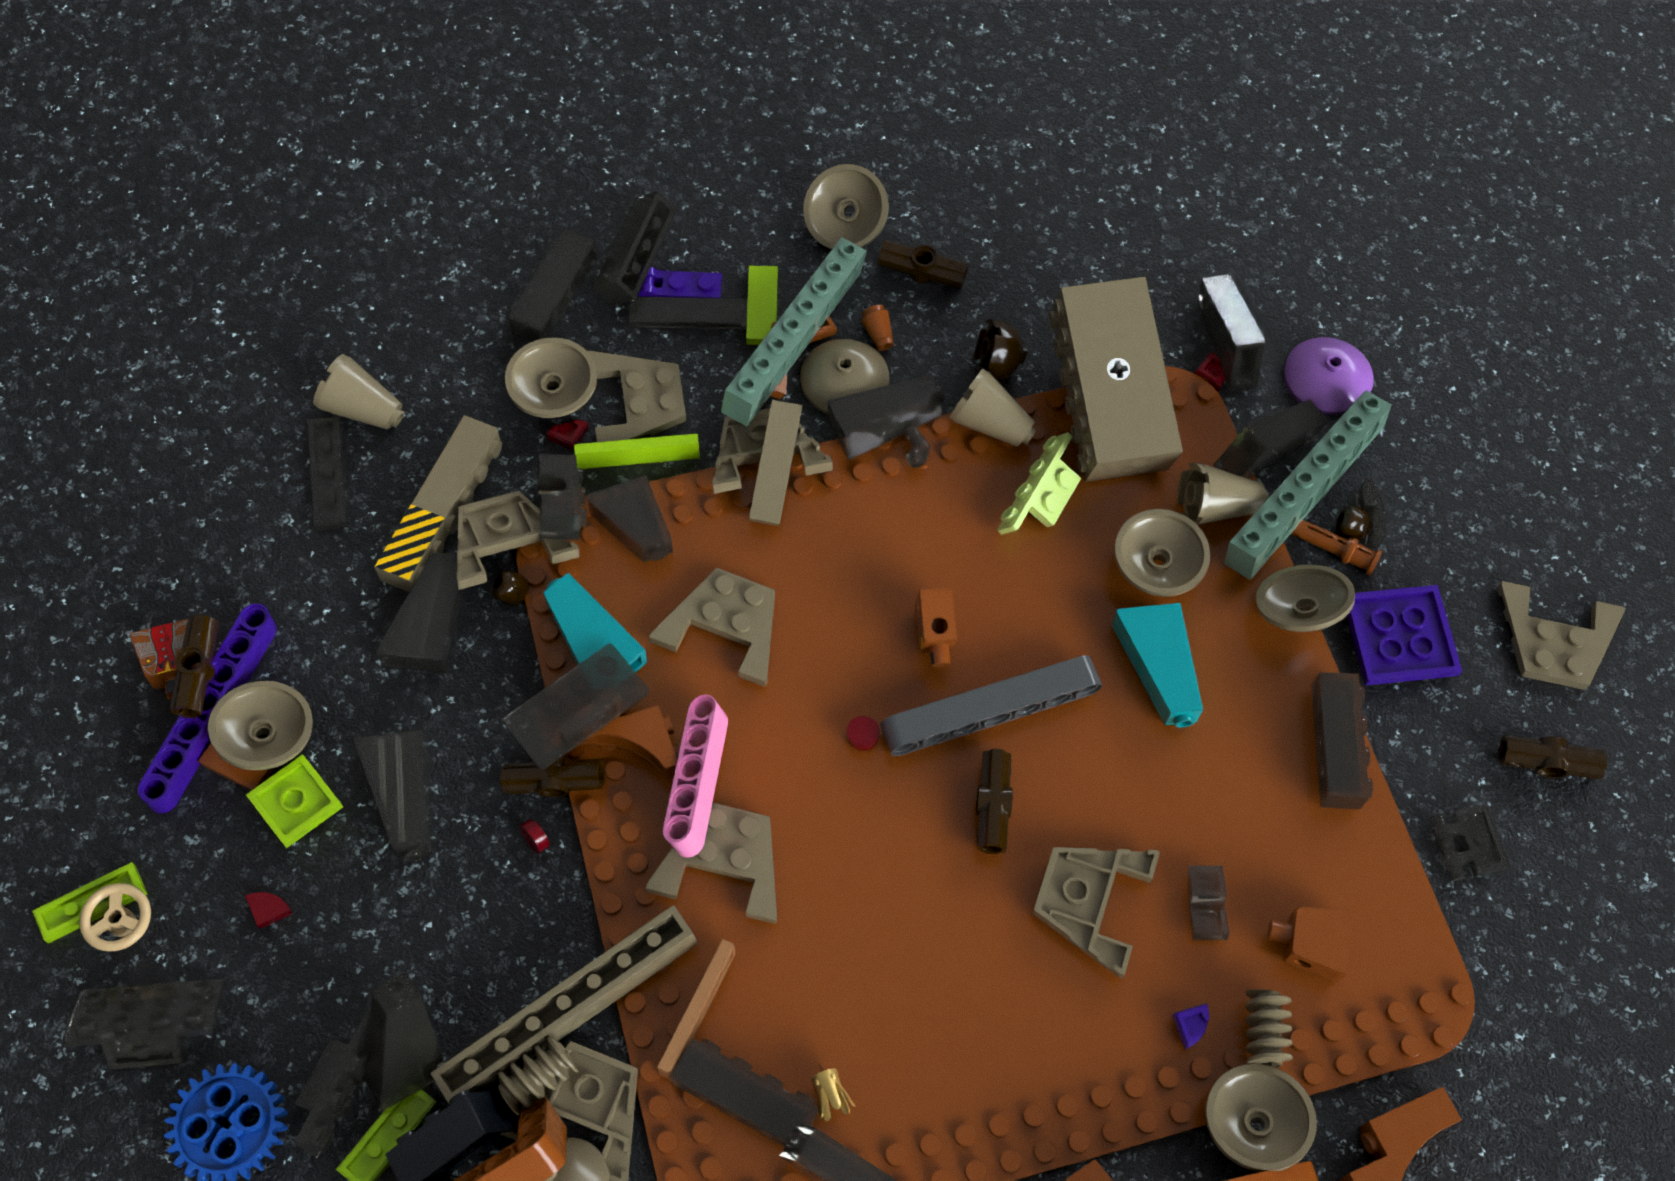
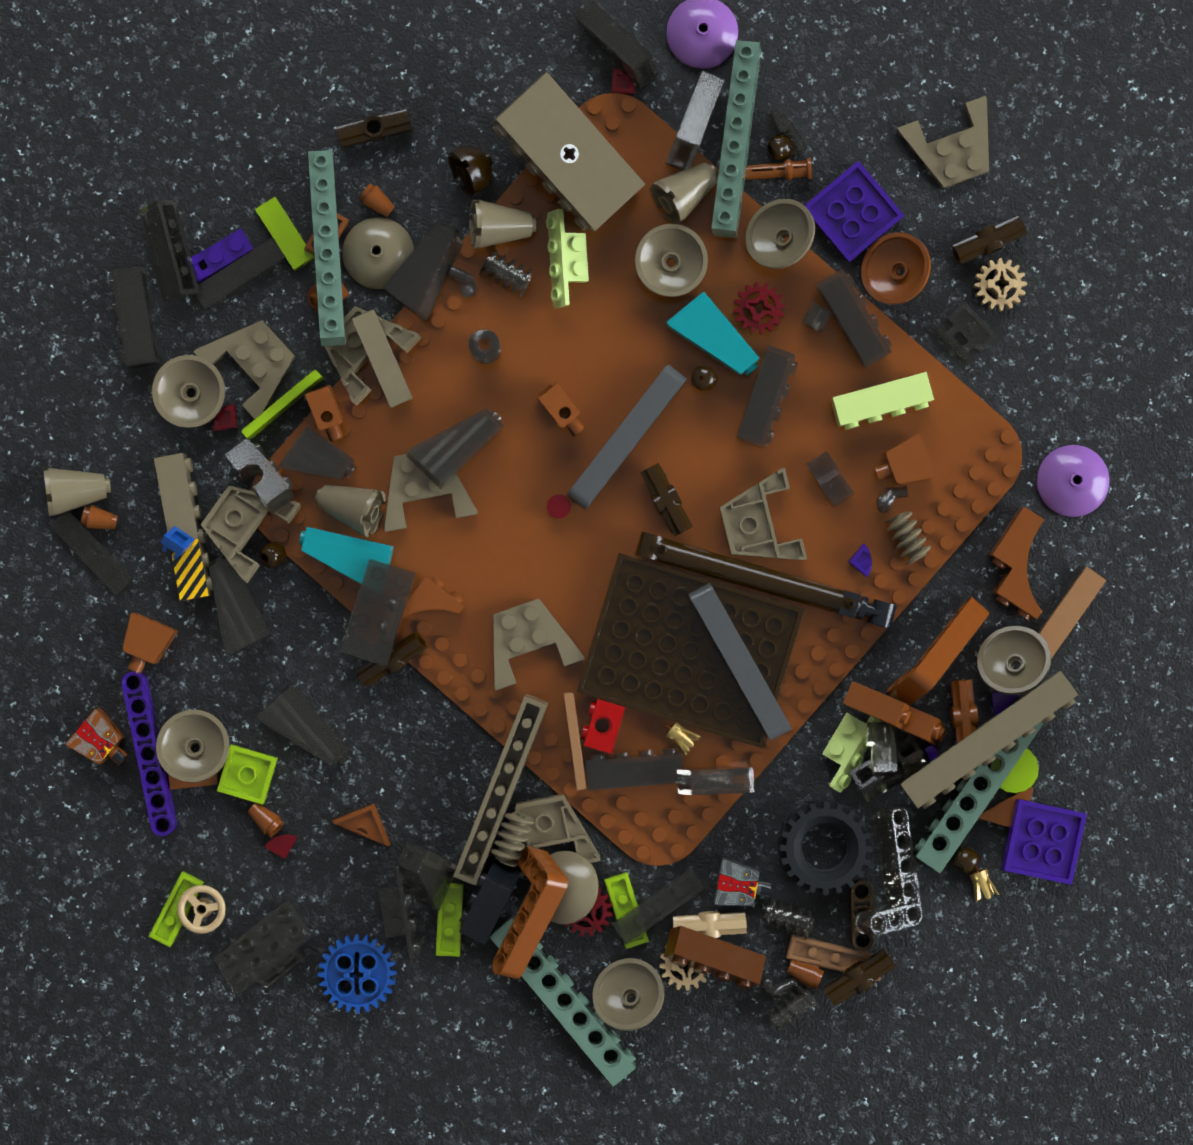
camera: 30 degrees left, 25 degrees up
(192, 684) = (118, 726): dark brown piece -> none
(273, 868) = (265, 819): none -> dark orange cone
(306, 590) = (146, 641): none -> dark orange torso
(360, 442) = (98, 518): none -> dark orange cone
(380, 947) = (365, 823): none -> dark orange tile
(419, 501) = (176, 541): none -> blue tile
(534, 836) = (406, 700): dark red tile -> none
(636, 588) = (352, 506): none -> dark tan cone
(678, 473) = (323, 400): none -> dark orange torso
(695, 776) = (488, 608): bright pink beam -> none
(736, 1033) = (604, 740): none -> red brick
(791, 593) = (455, 447): none -> clear smoke slope
(836, 192) = (287, 134): dark tan dish -> none
(896, 513) = (483, 355): none -> clear smoke piece
(911, 997) = (662, 660): none -> dark brown plate
(964, 1045) = (739, 661): none -> dark grey beam
(968, 463) = (507, 273): none -> clear smoke piece
(1122, 698) = (709, 381): none -> dark brown piece
(1140, 1059) = (765, 580): none -> dark brown piece
(1184, 761) = (766, 396): none -> clear smoke brick
(1233, 676) = (748, 305): none -> dark red gear
(1272, 966) = (888, 495): none -> clear smoke arm
(1272, 1100) = (936, 577): dark tan dish -> none
(1295, 714) = (816, 317): none -> clear smoke piece
(1325, 849) = (881, 400): none -> yellowish green brick
(1422, 716) = (885, 261): none -> dark orange dish
(1504, 1116) = (1057, 485): none -> medium lavender dish
(1555, 815) = (1010, 284): none -> tan gear

